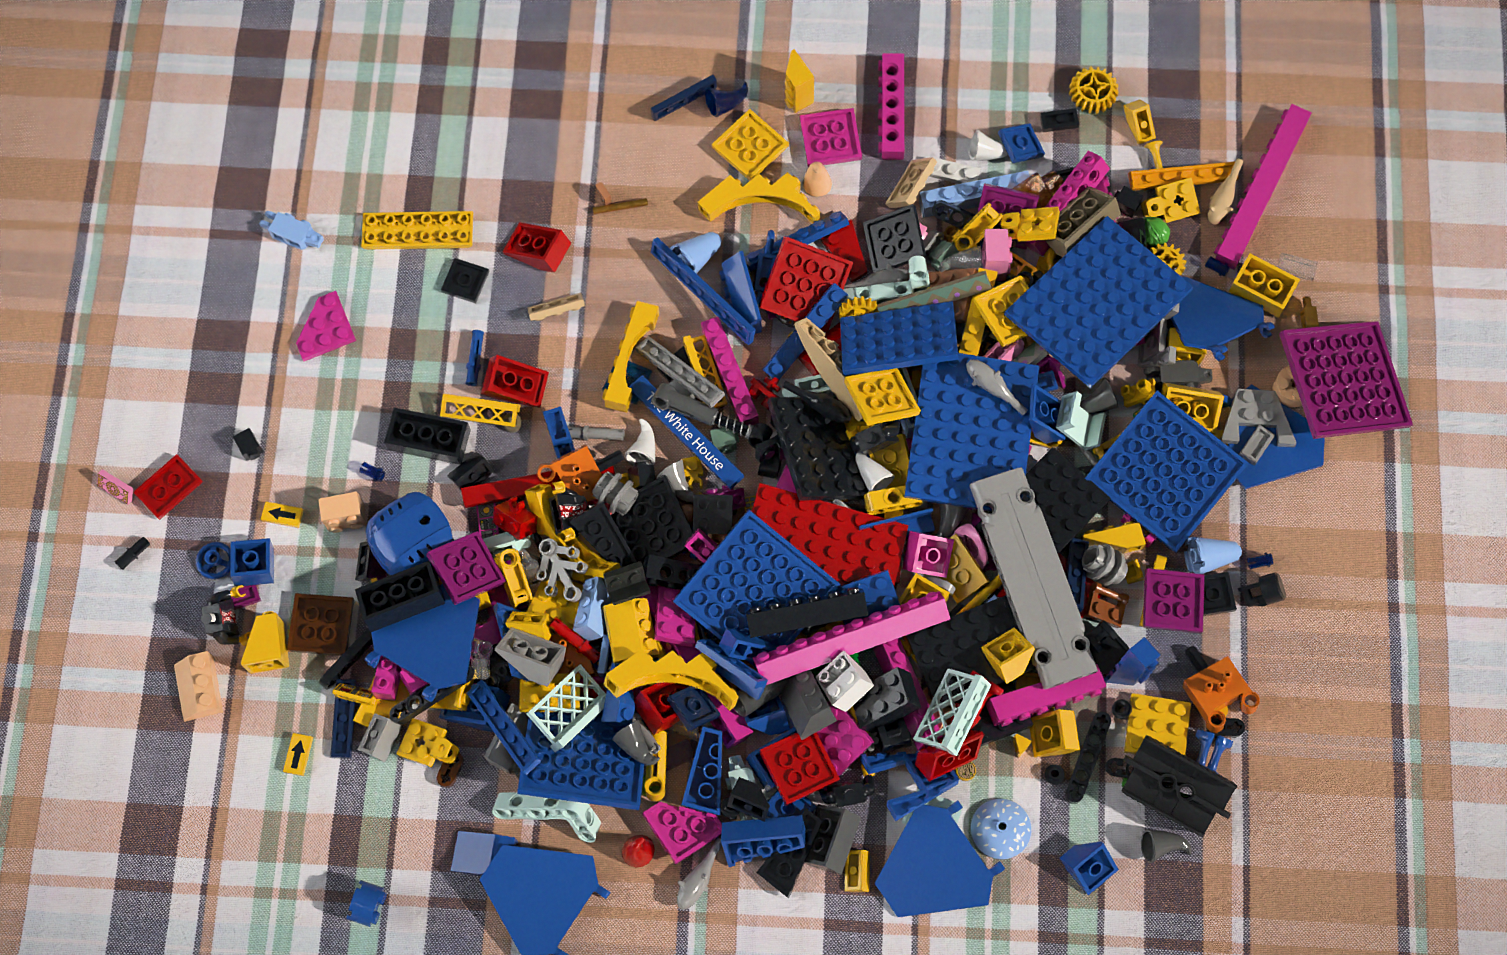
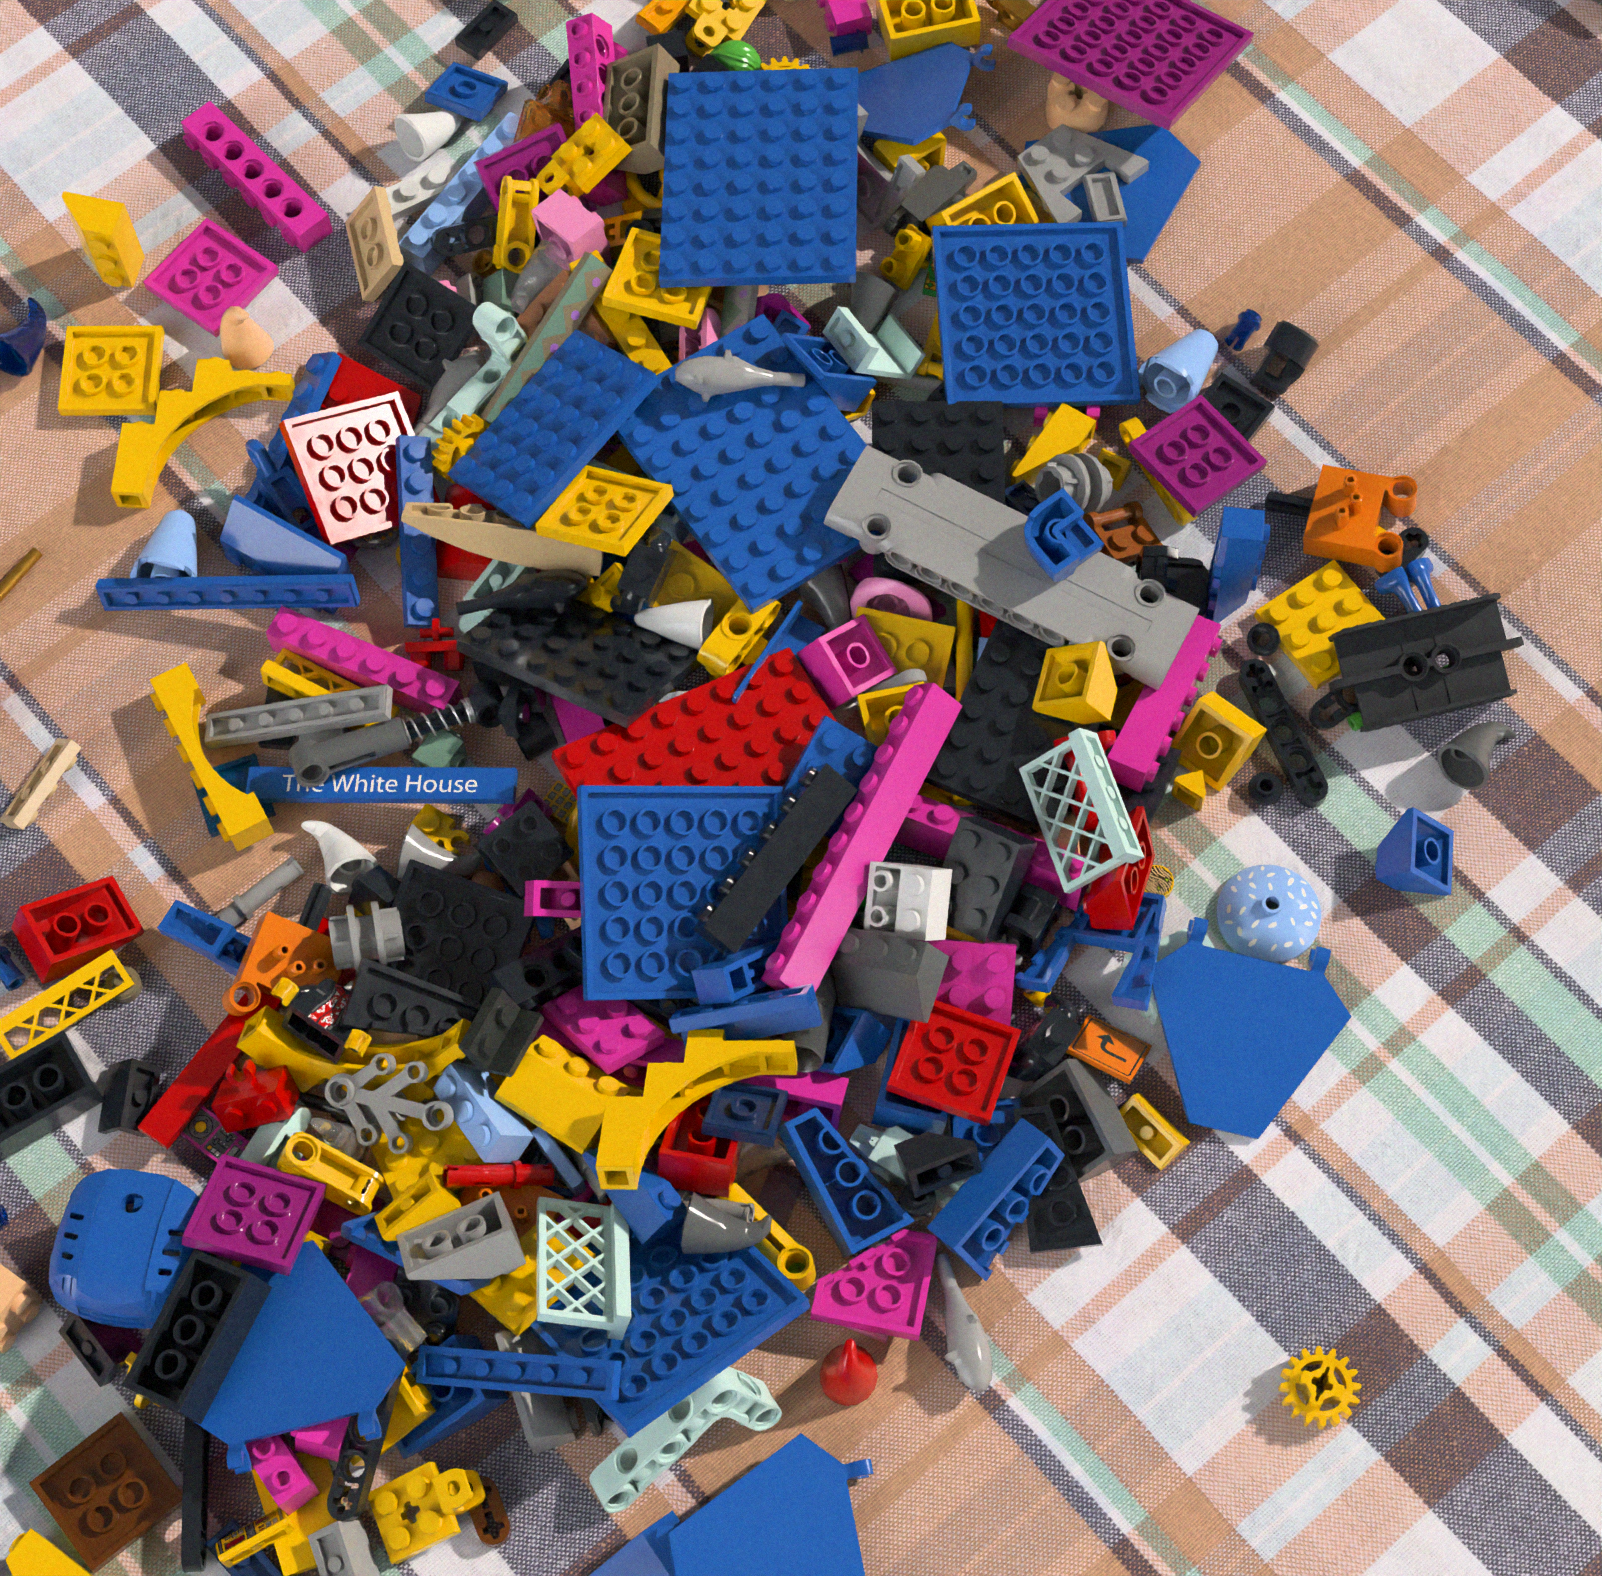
camera: 45 degrees left, 5 degrees down
(872, 821) = (1109, 1049): none -> orange piece
(1060, 584) = (1059, 536): none -> blue brick

